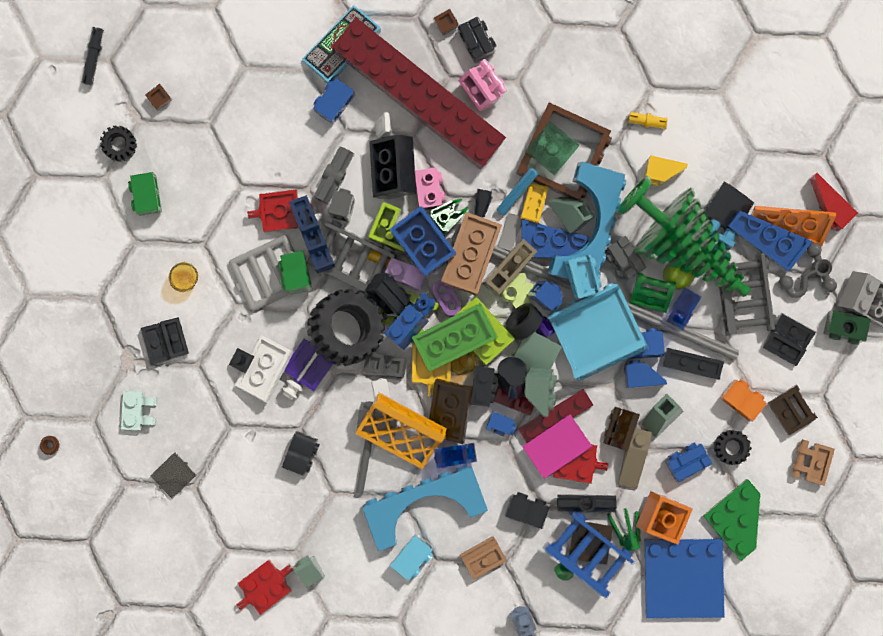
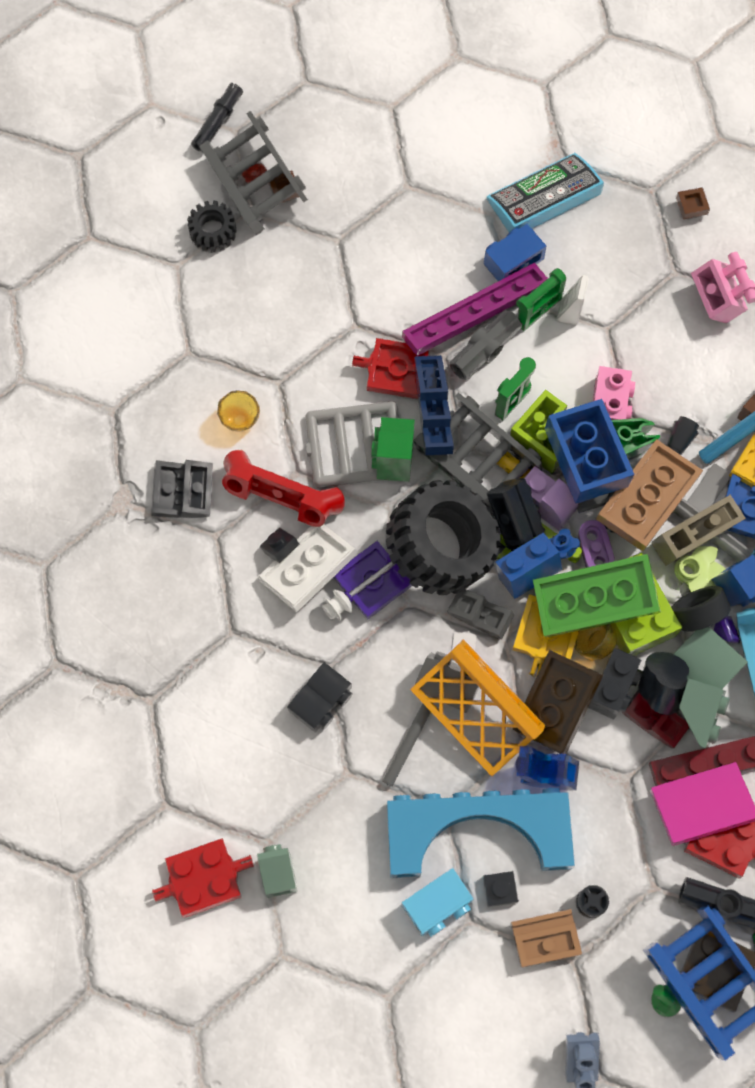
camera: 15 degrees right, 15 degrees down
(116, 101) = (241, 194): none -> dark grey fence
(133, 410) = (104, 567): light aqua plate -> none
(138, 92) = (249, 176): none -> clear red plate
(145, 193) = (225, 294): green brick -> none
(173, 475) = (127, 675): clear smoke piece -> none
(203, 323) = (311, 504): none -> red plate
(319, 152) = (472, 310): none -> magenta plate
(342, 205) = (485, 380): dark grey brick -> none
(360, 209) = (514, 390): none -> green plate
(361, 132) = (541, 299): none -> green plate
(392, 167) = (571, 351): black brick -> none
(418, 93) = (634, 274): dark red brick -> none
(447, 536) = (500, 889): none -> black plate
(476, 39) = (728, 232): black brick -> none
(501, 424) = (627, 747): blue brick -> none
(507, 525) = (596, 898): none -> black wheel
(526, 510) = (633, 887): black brick -> none

